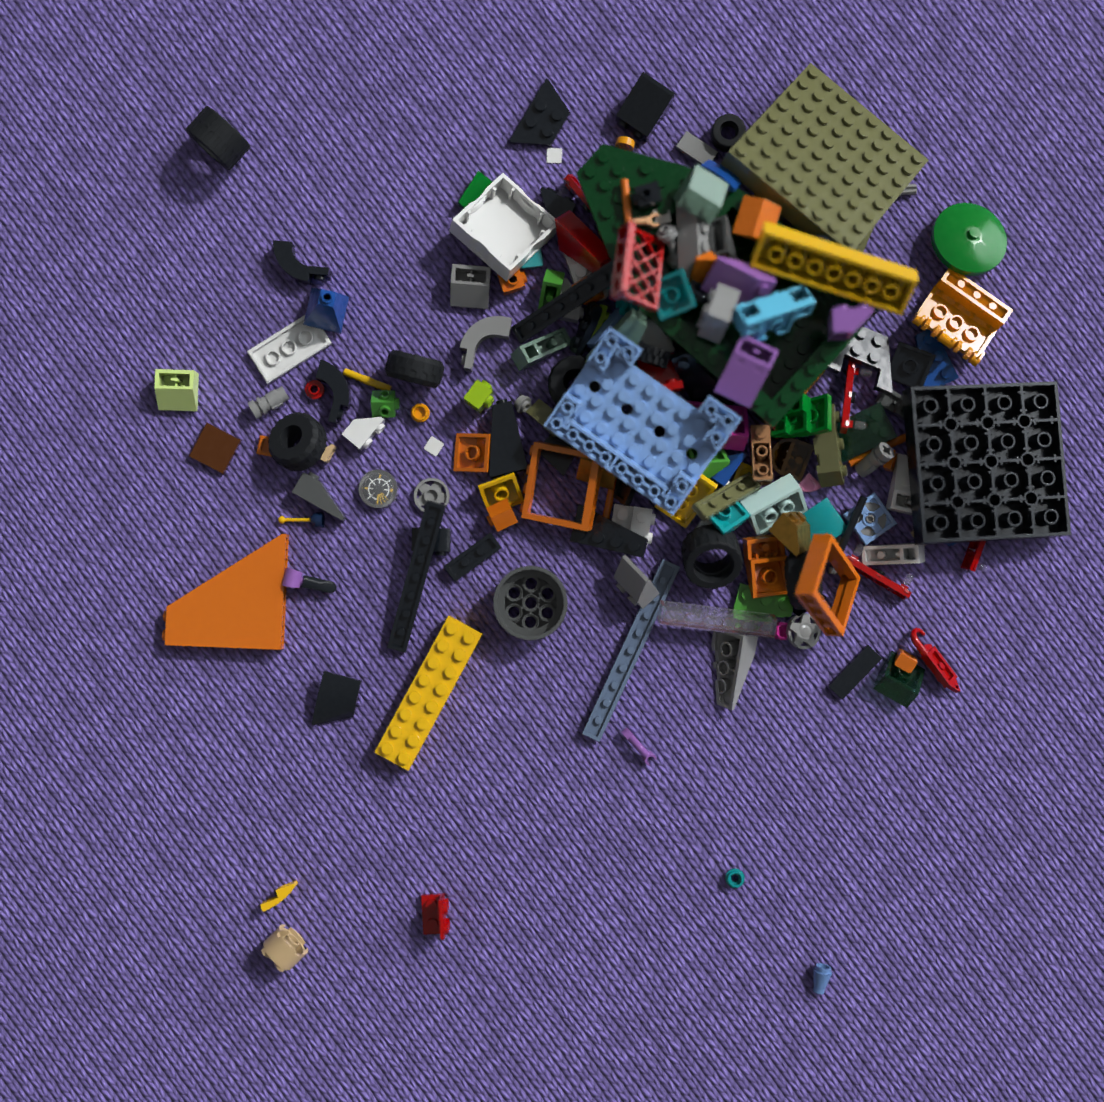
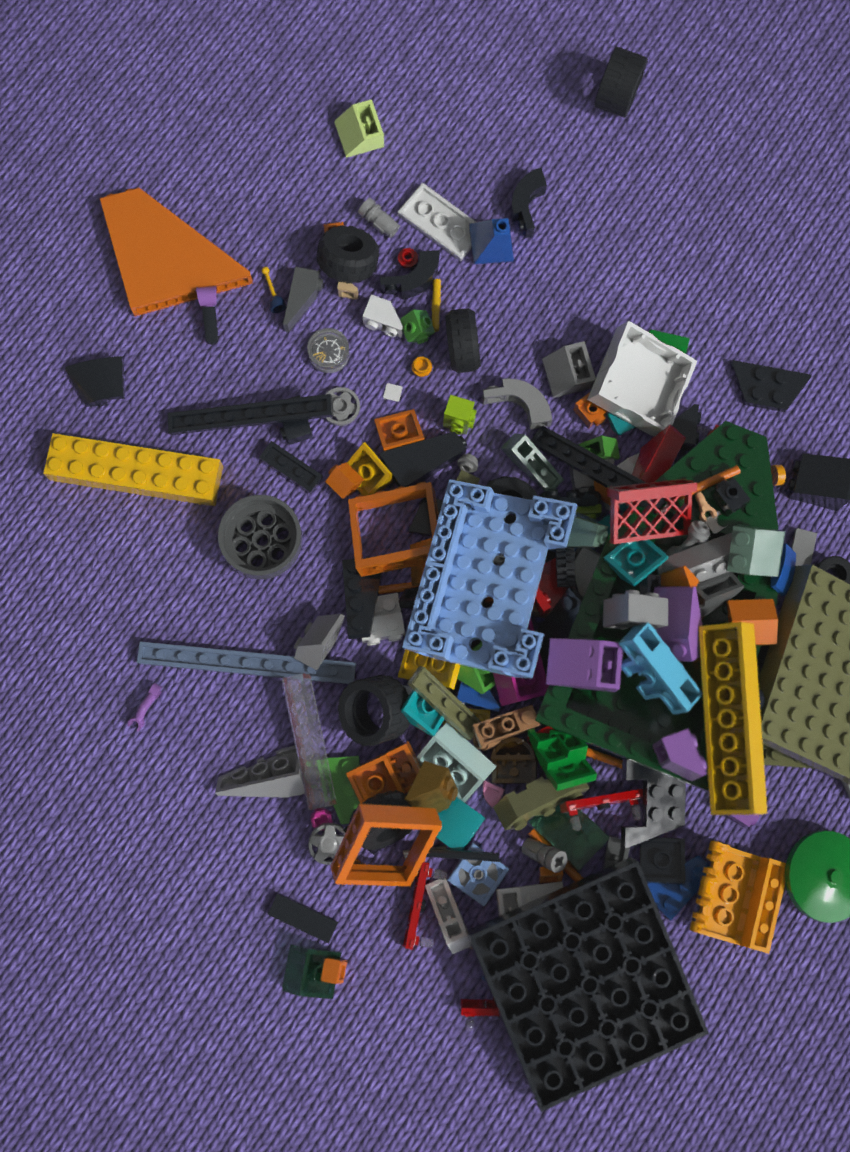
camera: 70 degrees right, 10 degrees down
(215, 448) = (315, 185): reddish brown tile -> none
(554, 155) = (736, 410): white sticker -> none
(739, 882) = (24, 863): teal plate -> none
(935, 662) = (343, 1007): red plate -> none

